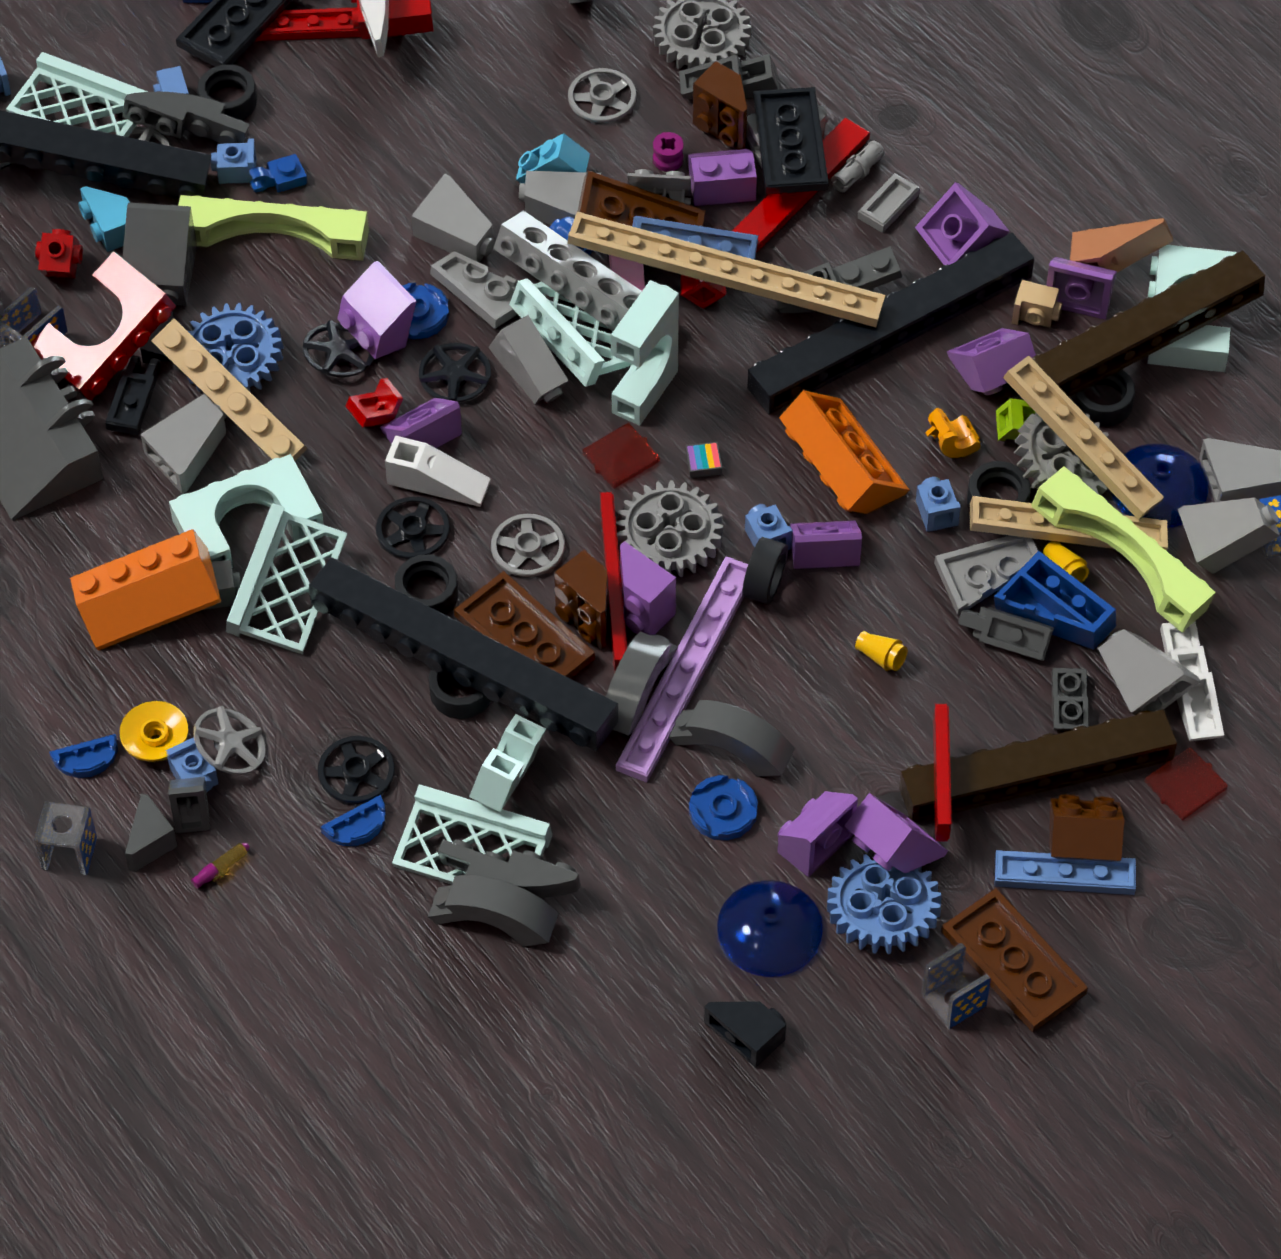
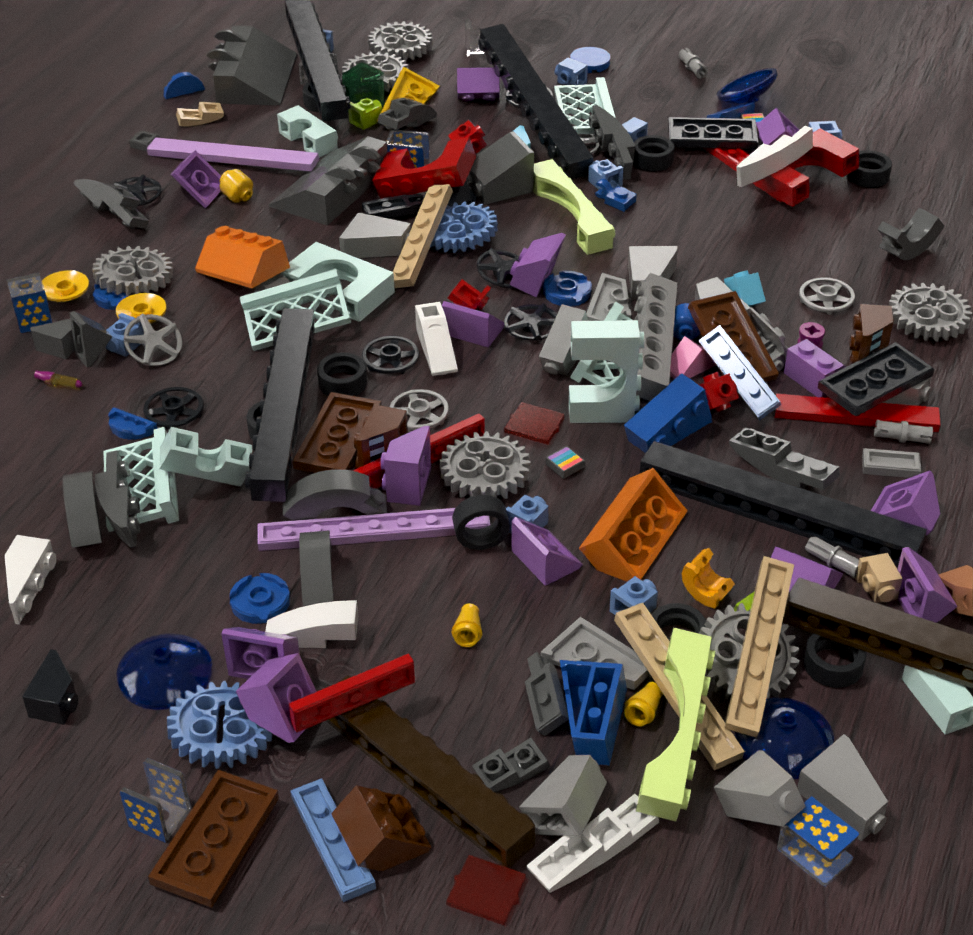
camera: 60 degrees right, 15 degrees down
(37, 783) = (65, 285): none -> yellow dish
(64, 711) = (132, 270): none -> light grey gear
(552, 1000) = (26, 569): none -> white slope
(716, 337) = (670, 415): none -> blue wedge
(726, 269) = (723, 391): tan plate -> none
(755, 73) = (911, 338): dark grey slope -> none
(802, 774) = (318, 623): none -> white slope
(982, 321) = (833, 556): none -> light grey axle

